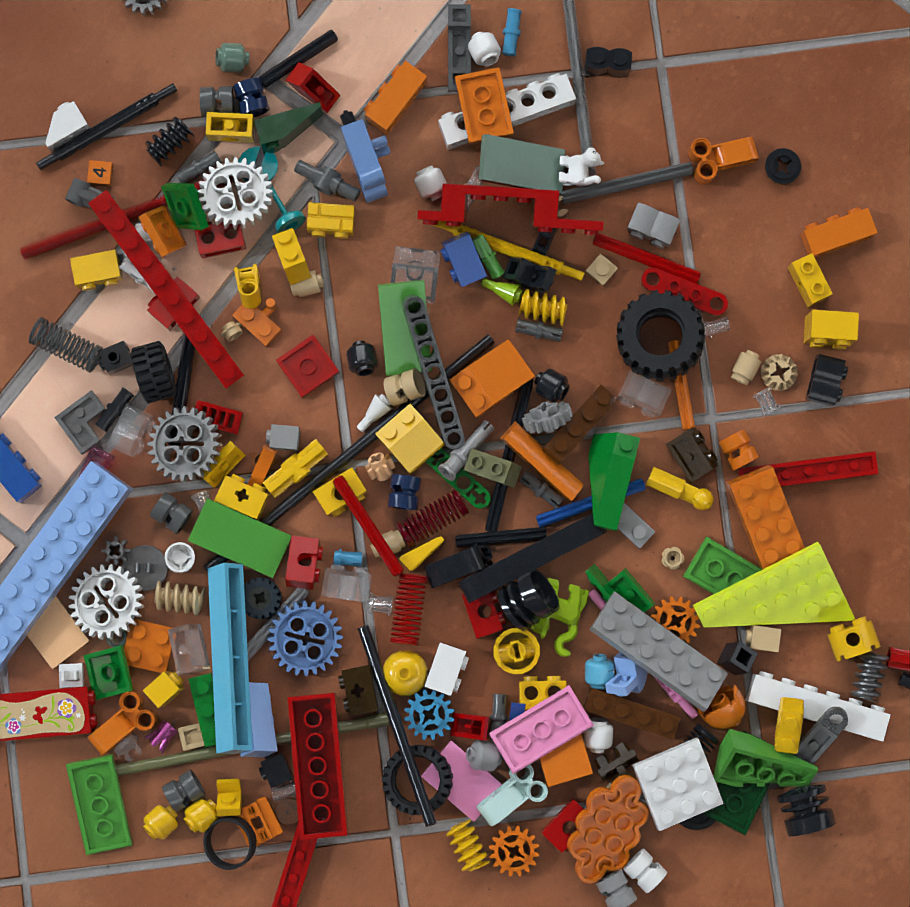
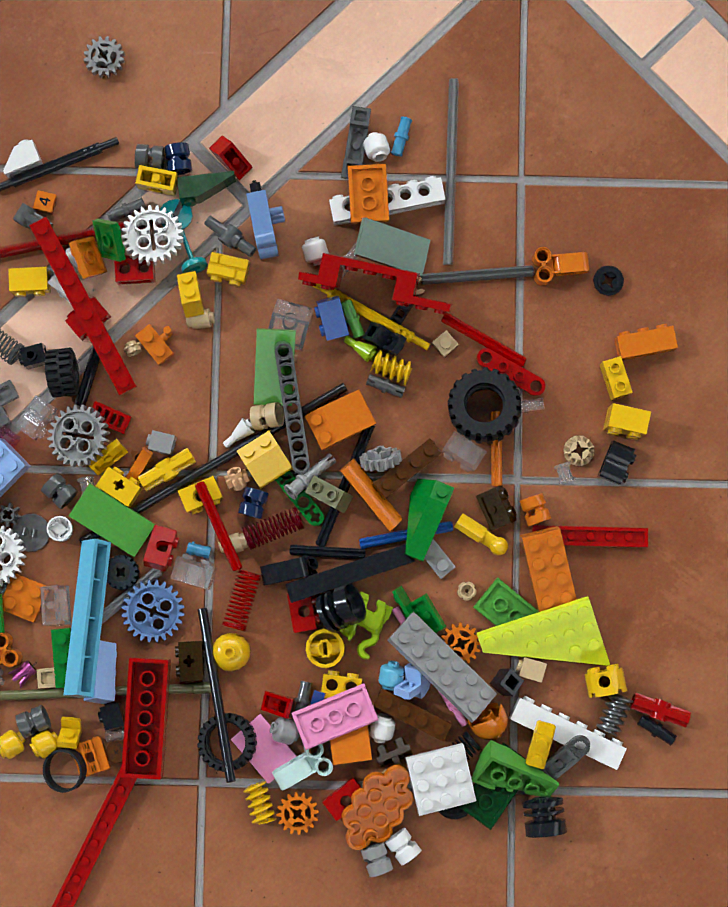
camera: 10 degrees right, 0 degrees up
(114, 409) = (26, 398): black pin -> none
(164, 688) = (30, 635): yellow brick -> none
(168, 140) = (104, 184): black piece -> none
(178, 598) = (54, 563): tan piece -> none
(231, 57) = (167, 123): sand green head -> none
(249, 286) = (152, 313): yellow piece -> none
(300, 56) = (224, 130): black axle -> none
(307, 366) = (190, 386): red tile -> none
(362, 358) = (236, 387): black head -> none
(380, 604) = (219, 592): clear bush -> none
(395, 97) = (297, 175): orange brick -> none
(415, 705) = (251, 696): dark azure gear -> none
(418, 555) = (254, 558): yellow slope -> none
(446, 669) = (264, 654): white brick -> none
(541, 489) = (367, 517): dark grey pin -> none
(552, 385) = (389, 433): black head -> none
(578, 168) = (439, 256): white animal -> none
(613, 62) = (482, 174): black brick -> none
(653, 225) = (493, 313): light grey brick -> none
(746, 367) = (551, 442): tan brick -> none

